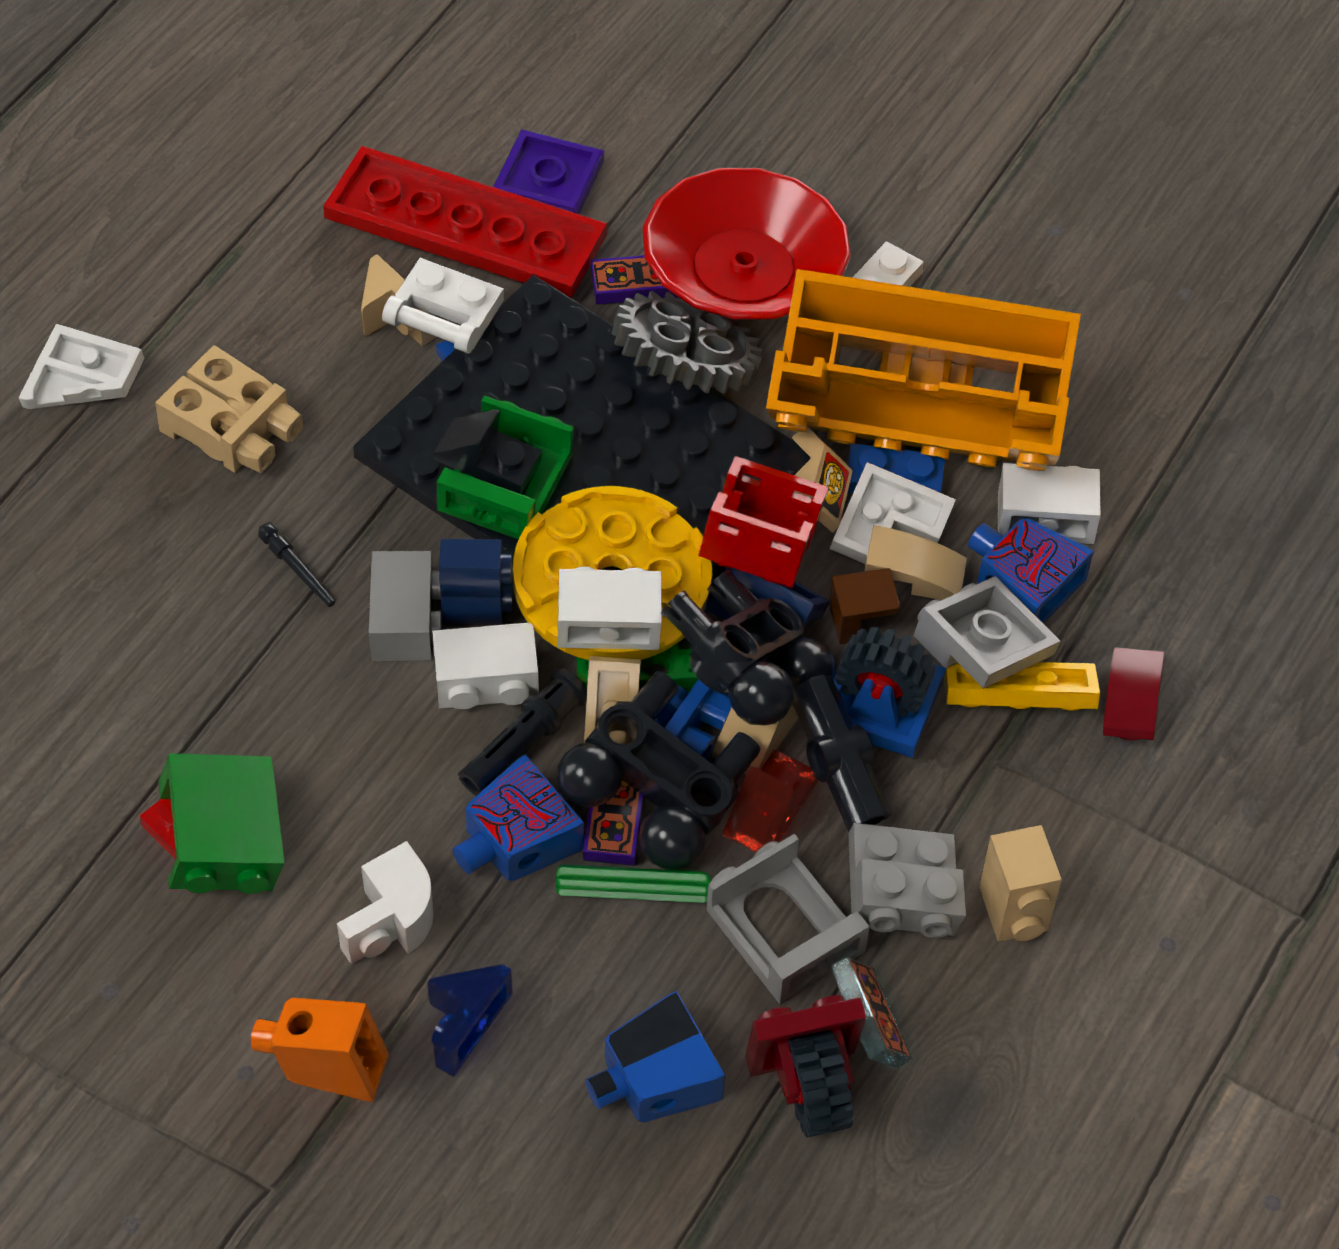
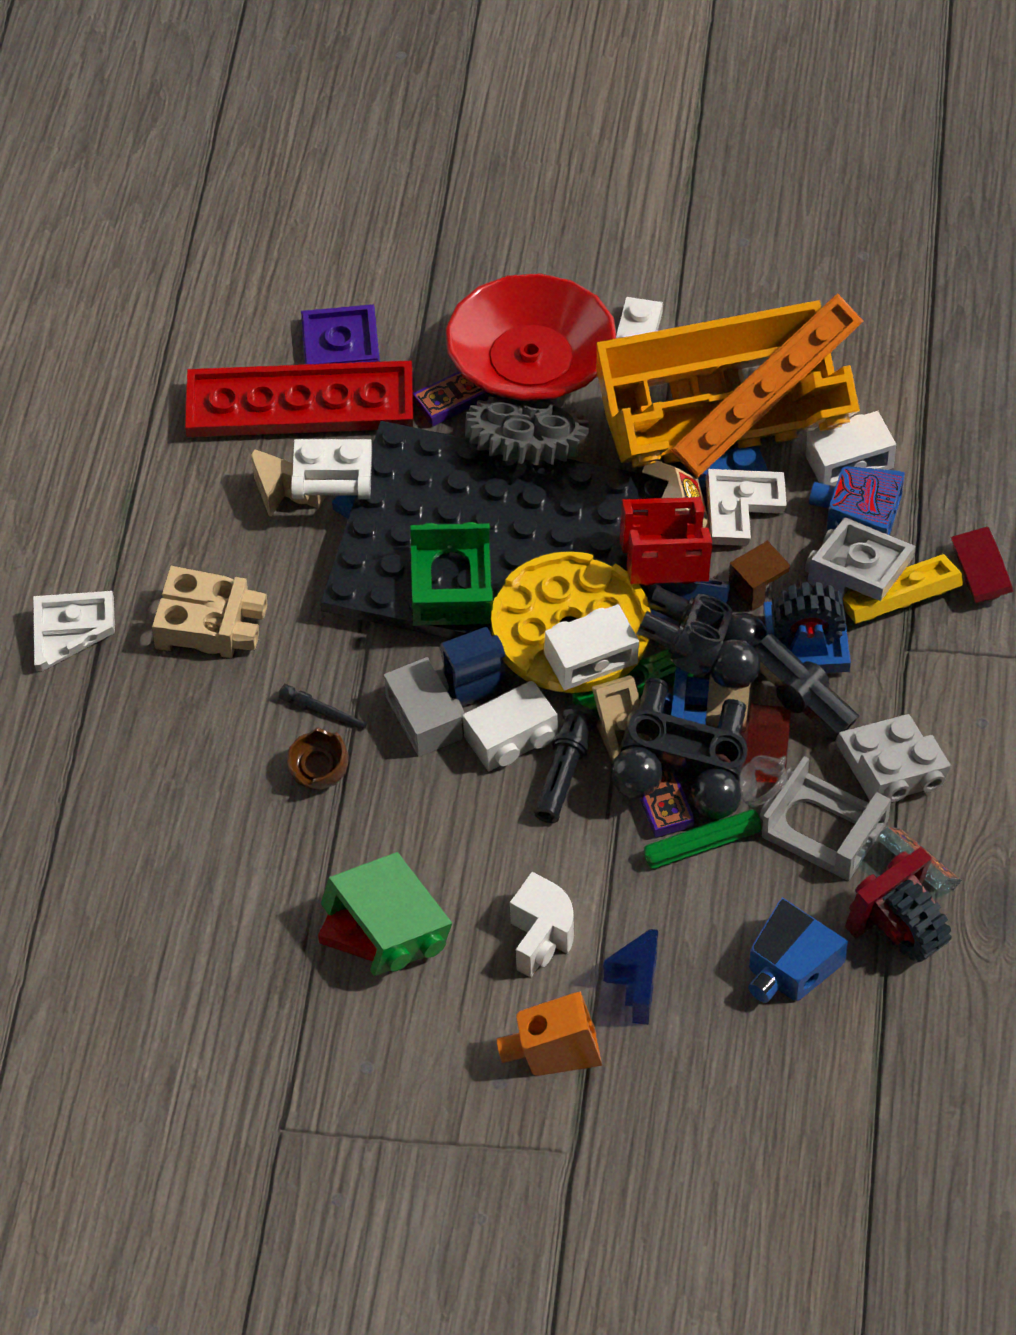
camera: 20 degrees left, 0 degrees up
(252, 619) = (318, 759): none -> reddish brown hair
(483, 452) = (424, 567): black slope -> none
(519, 824) = (601, 829): blue torso -> none
(722, 836) = (748, 782): none -> clear piece
(916, 560) = (783, 528): tan slope -> none
(976, 390) = (766, 385): none -> orange tile
(1020, 884) = (978, 728): tan brick -> none

